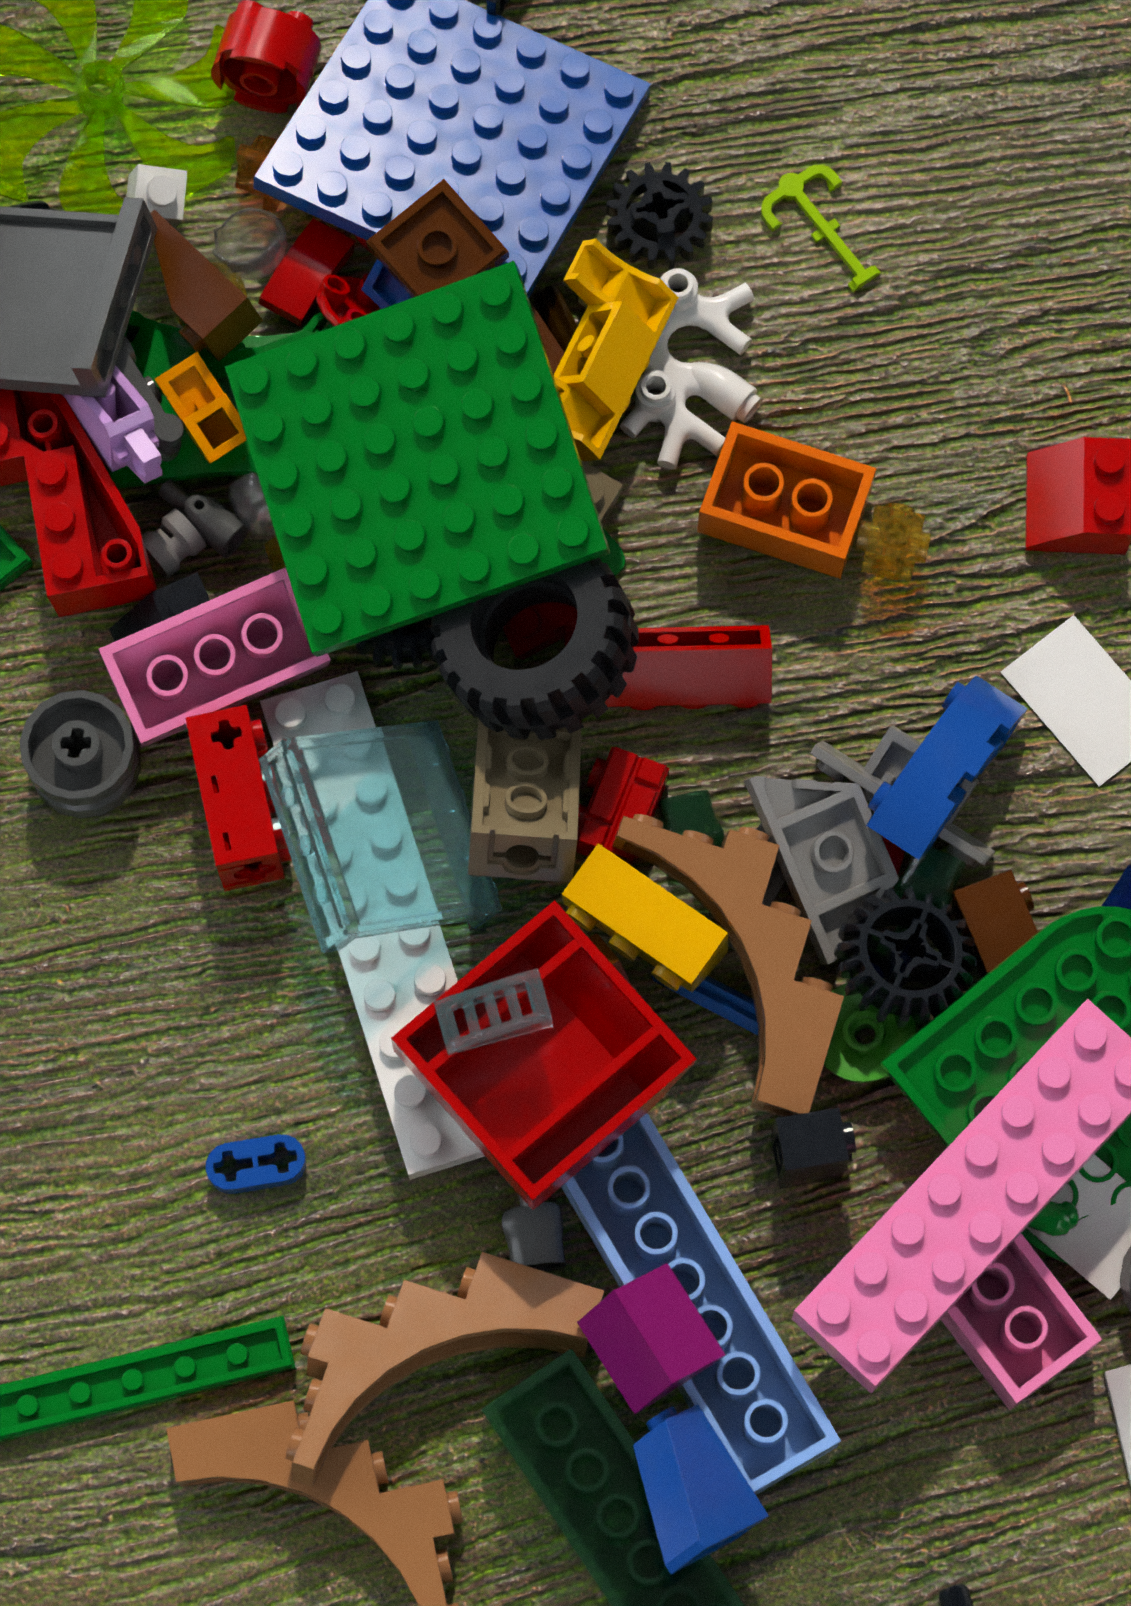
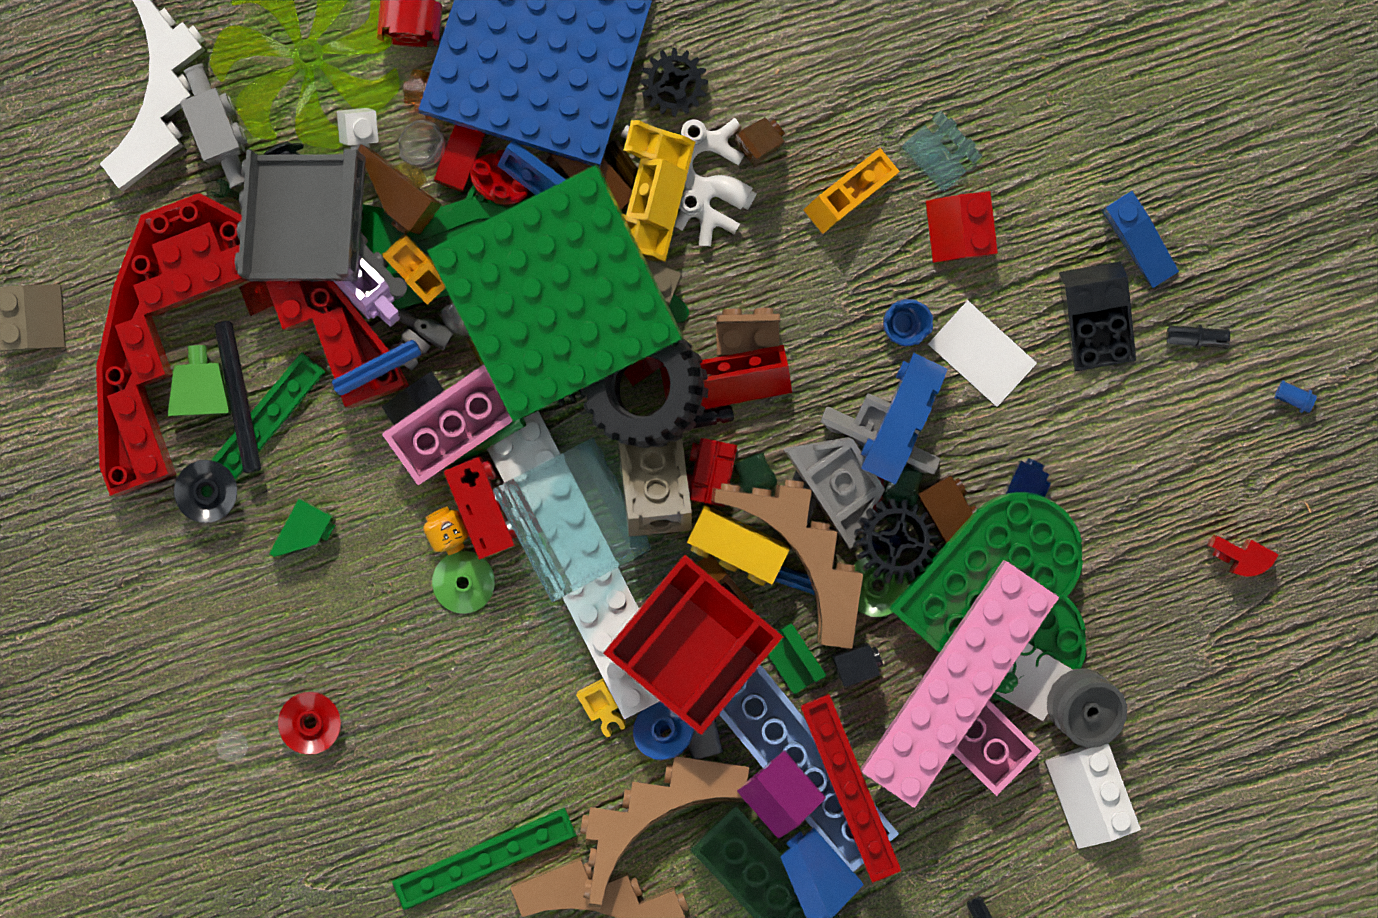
camera: 10 degrees left, 15 degrees up
(107, 749) = (363, 498): dark grey wheel -> none
(109, 536) = (376, 367): none -> blue axle
(173, 831) = (446, 531): none -> light orange head
(193, 947) = (480, 580): none -> bright green dish
(254, 1151) = (534, 728): blue beam -> none
(288, 691) = (489, 442): none -> green bar
(373, 1150) = (600, 704): none -> yellow plate
(436, 243) = (542, 142): reddish brown tile -> none
(461, 1196) = (649, 732): none -> blue dish
(487, 993) = (684, 619): clear light blue slope -> none
(627, 726) = (712, 416): none -> black axle
(707, 1130) = (795, 660): none -> green panel
(714, 588) = (746, 332): none -> medium nougat bracket
(771, 1345) = (850, 788): none -> red plate
(776, 313) = (760, 140): none -> reddish brown slope
(786, 499) = (782, 261): orange brick -> none
(791, 188) = (753, 46): lime piece -> none
(893, 541) = (849, 289): clear yellow brick -> none
(909, 415) = (851, 190): none -> light orange slope
(974, 624) = (908, 322): none -> blue hair
(1050, 391) = (935, 158): none -> clear light blue plate

